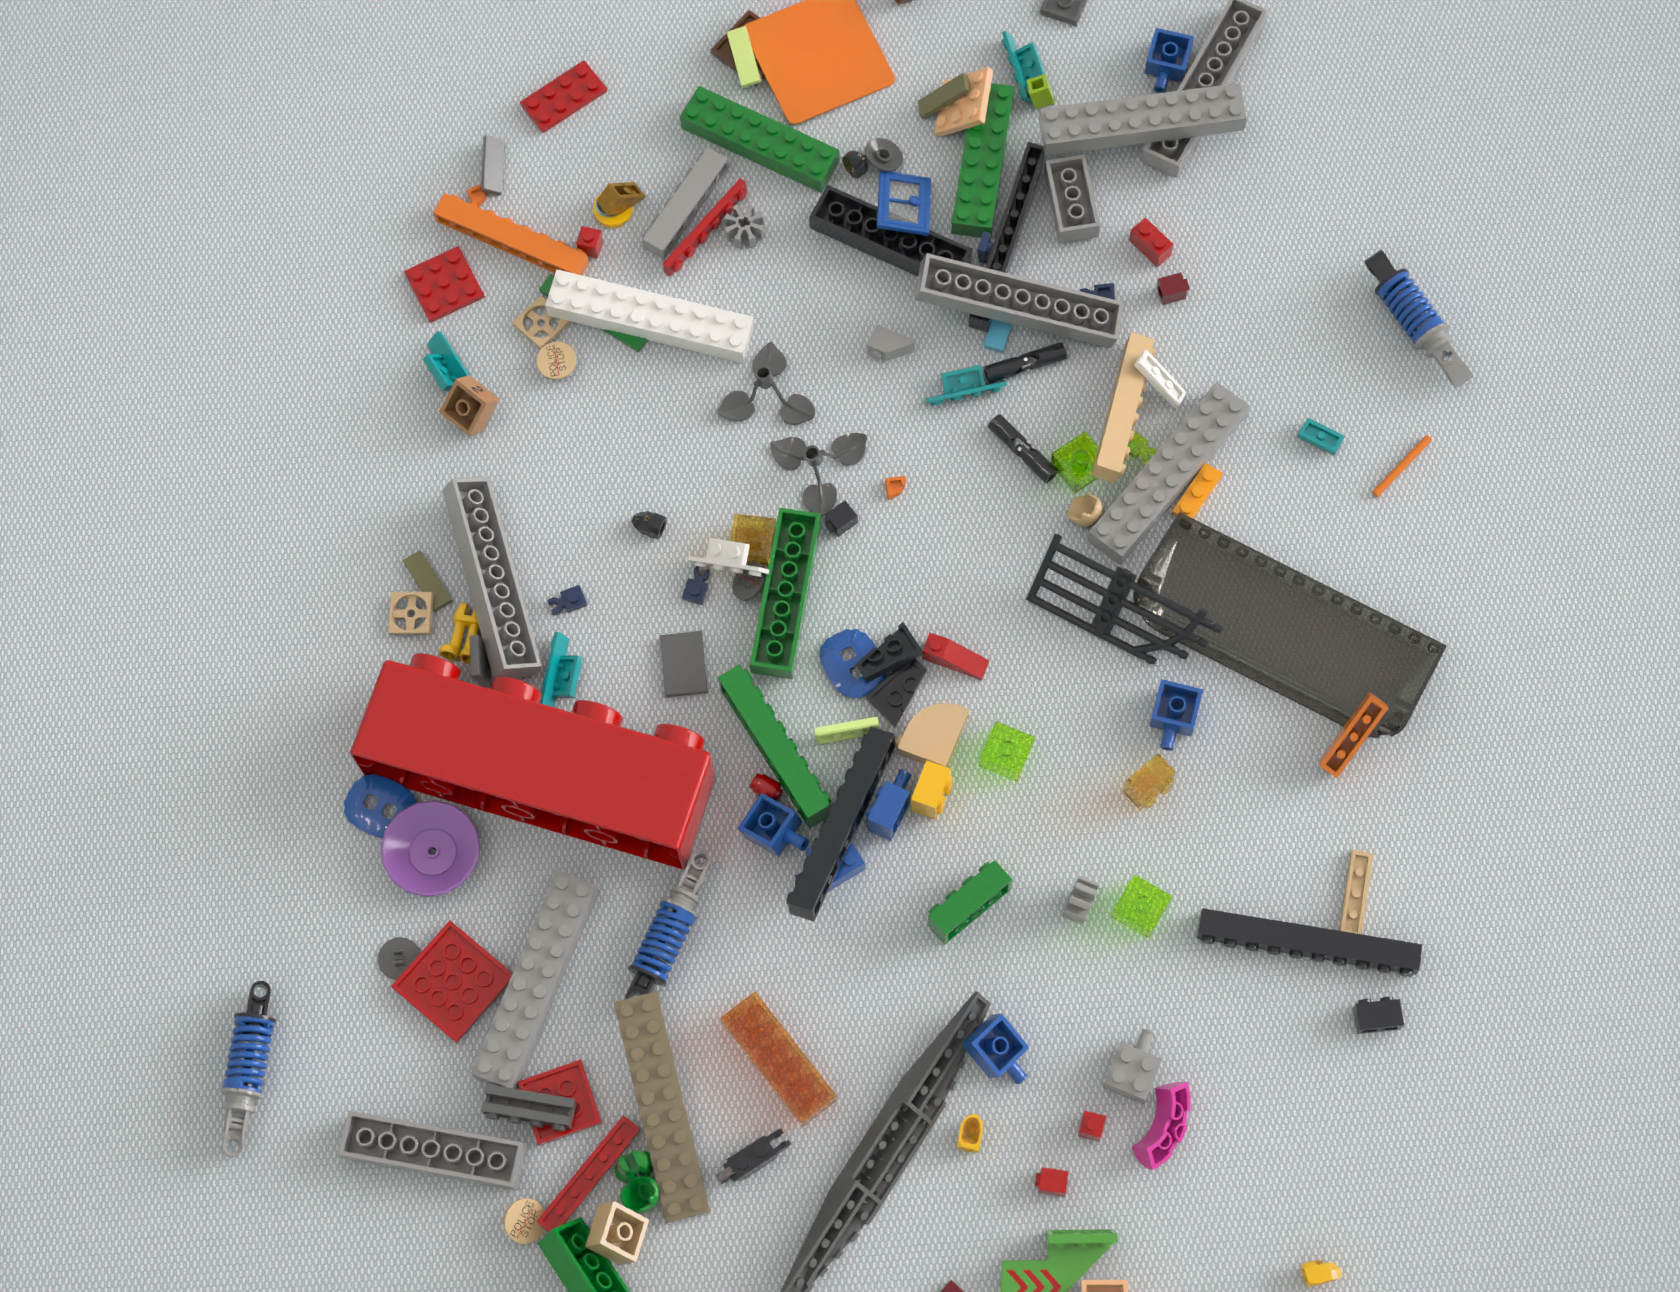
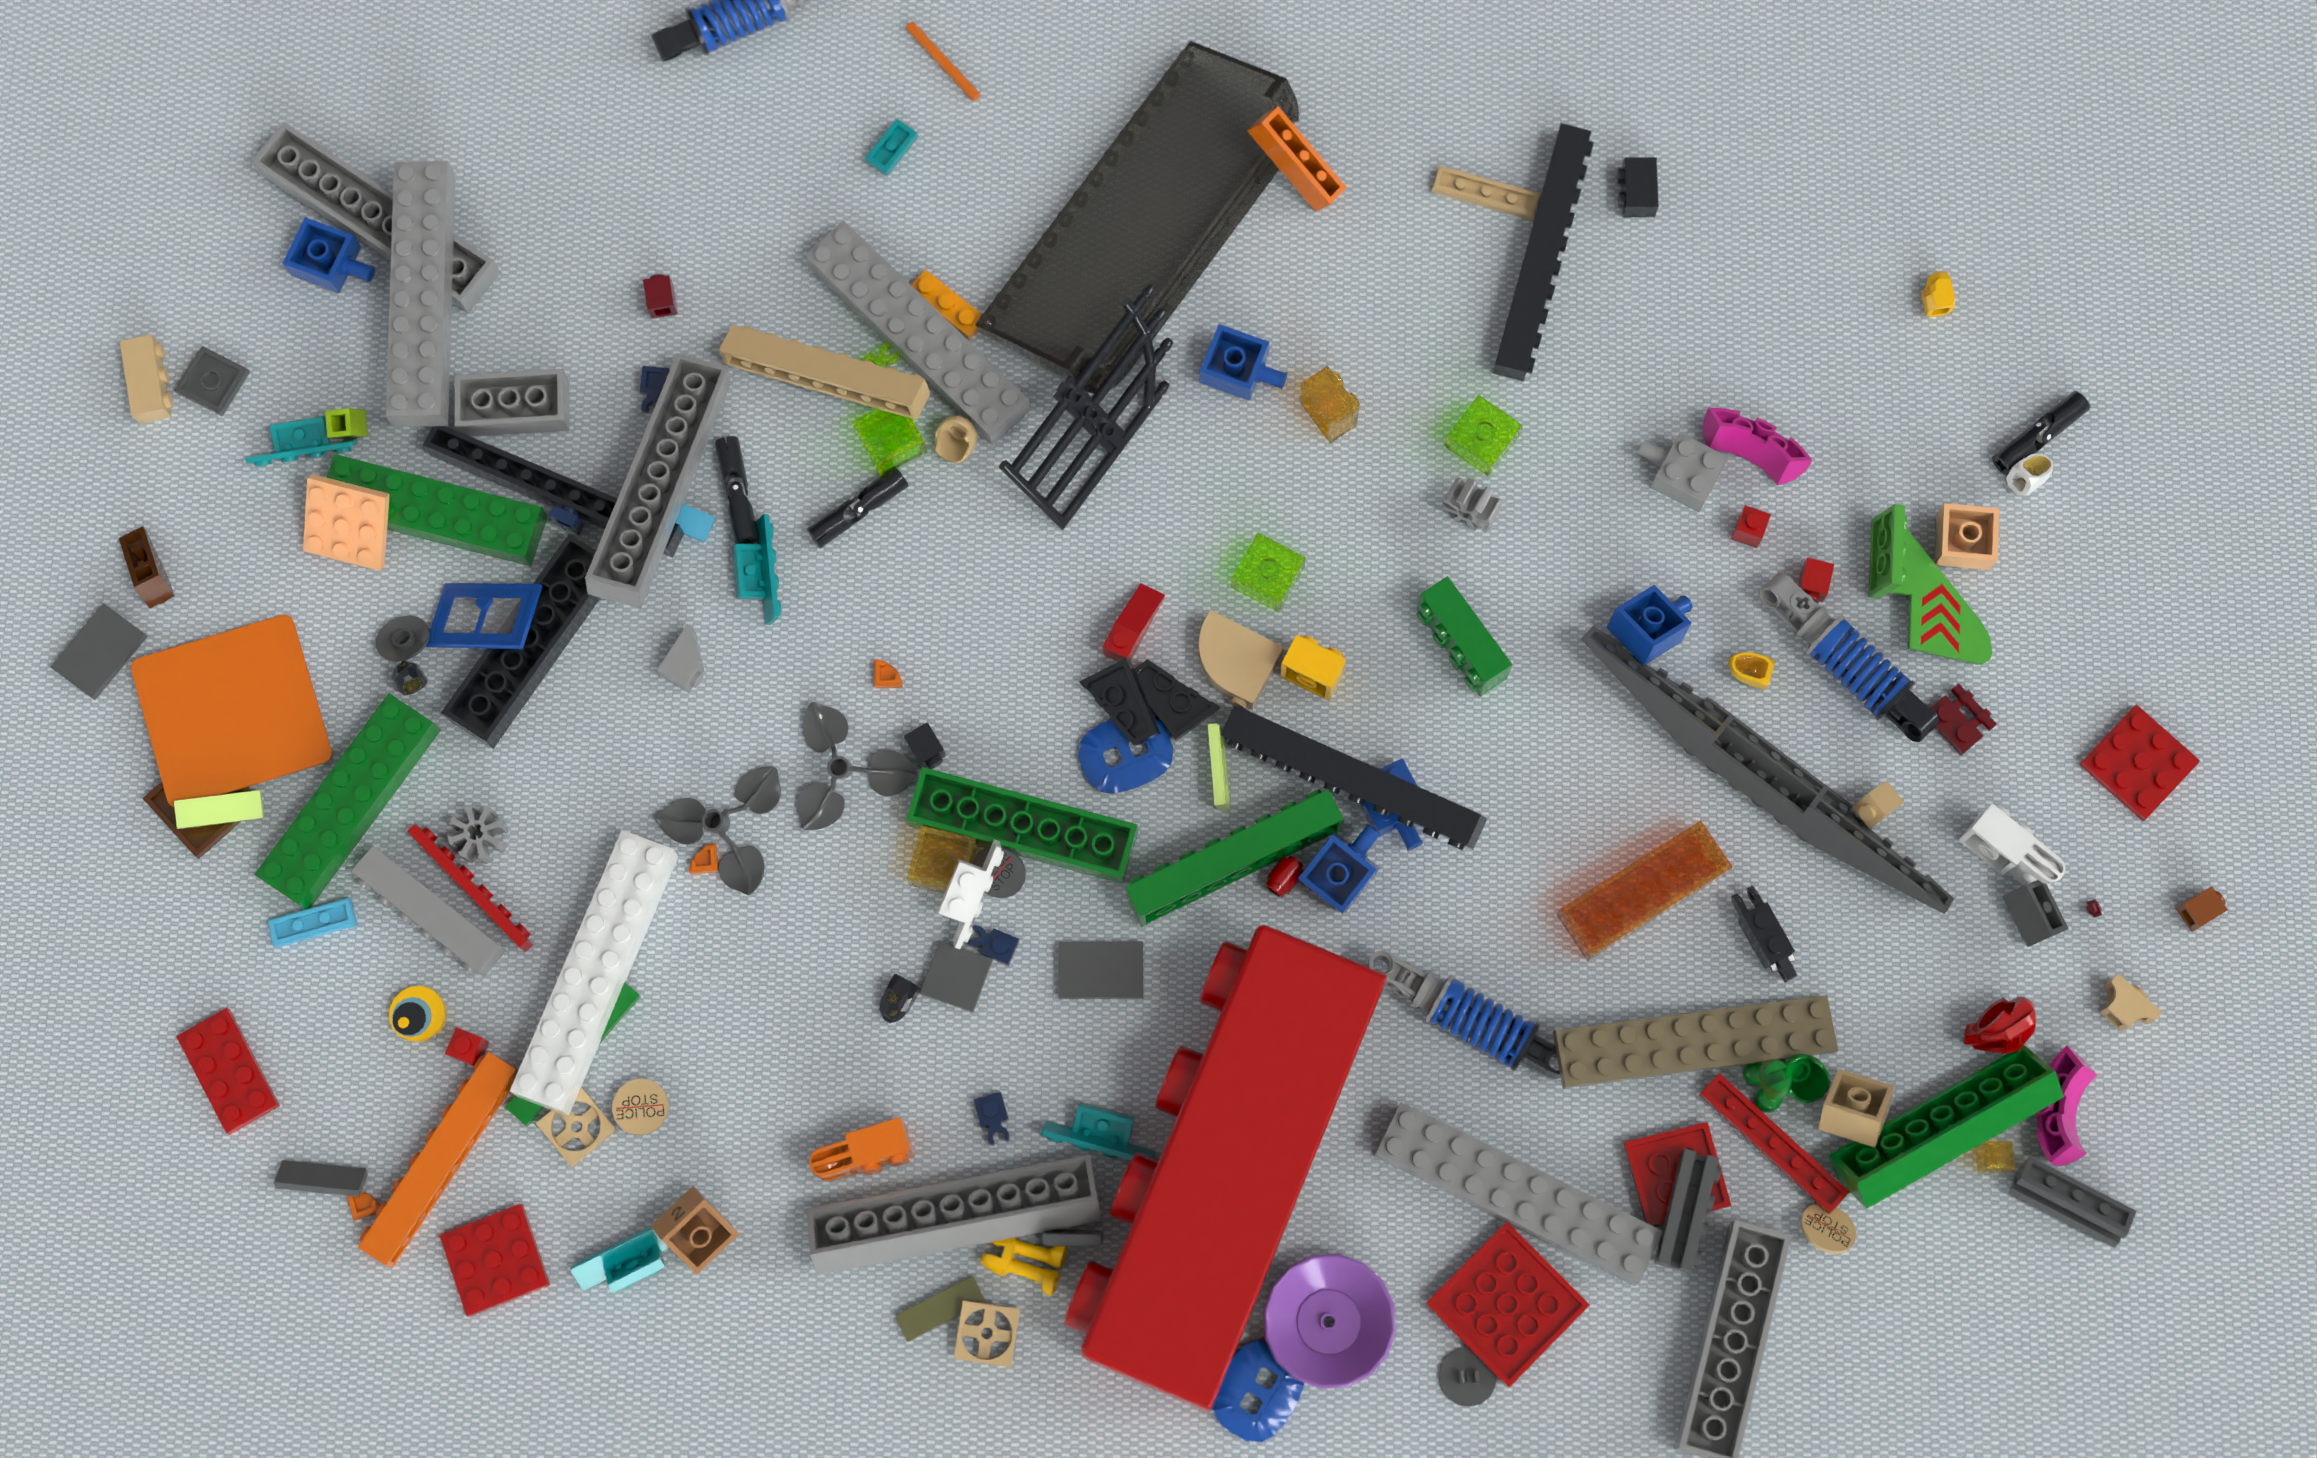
camera: 85 degrees left, 5 degrees up
(533, 512) = (864, 1151): none -> orange brick
(619, 197) = (408, 998): pearl gold slope -> none
(670, 563) = (956, 976): none -> dark grey tile
(672, 132) = (312, 922): none -> medium azure tile
(741, 381) = (705, 860): none -> orange tile
(867, 1241) = (1878, 804): none -> tan brick
(889, 807) = (1329, 720): blue brick -> none
(943, 96) = (332, 547): olive tile -> none
(985, 1210) = (1835, 643): none -> piece
(1151, 242) = (590, 313): red brick -> none
(1160, 378) = (789, 323): white tile -> none

